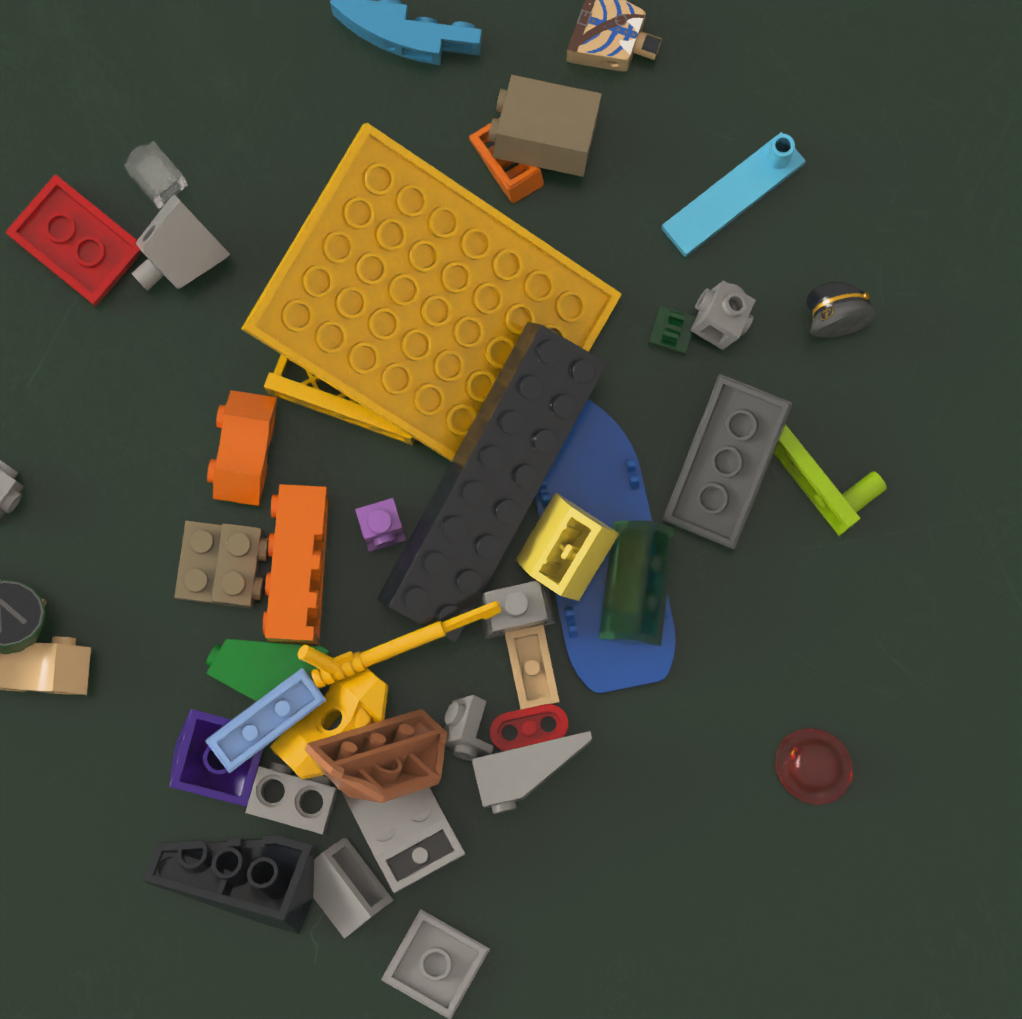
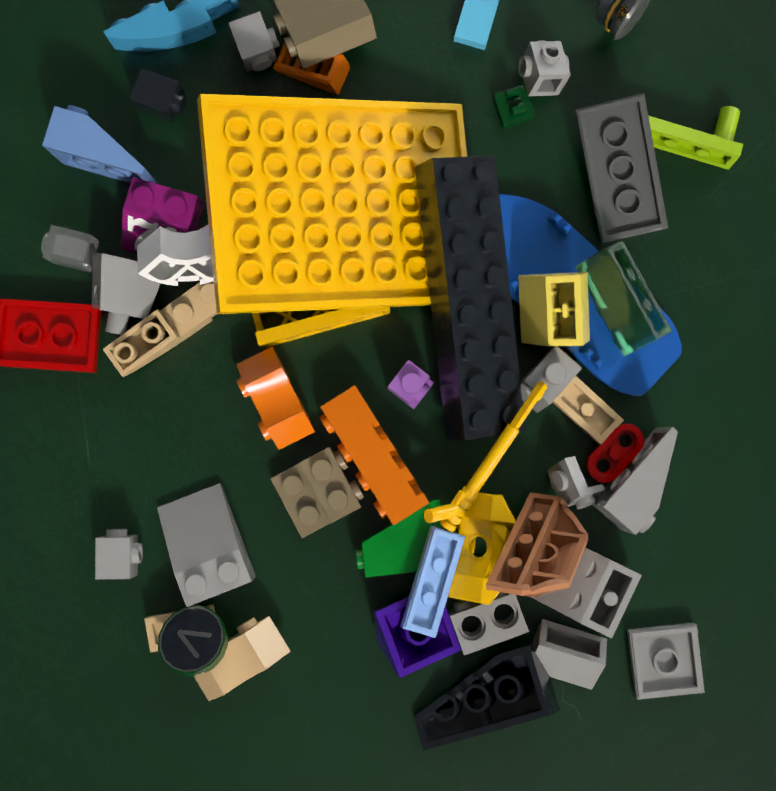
camera: 40 degrees left, 5 degrees up
(79, 539) = (205, 545): none -> light grey slope
(185, 309) = (163, 329): none -> tan slope
(236, 84) = (86, 146): none -> medium blue slope
(244, 250) = (176, 256): none -> white brick
(256, 208) = (156, 205): none -> magenta slope
(340, 89) = (158, 95): none -> black brick
(467, 100) = (254, 41): none -> light grey brick

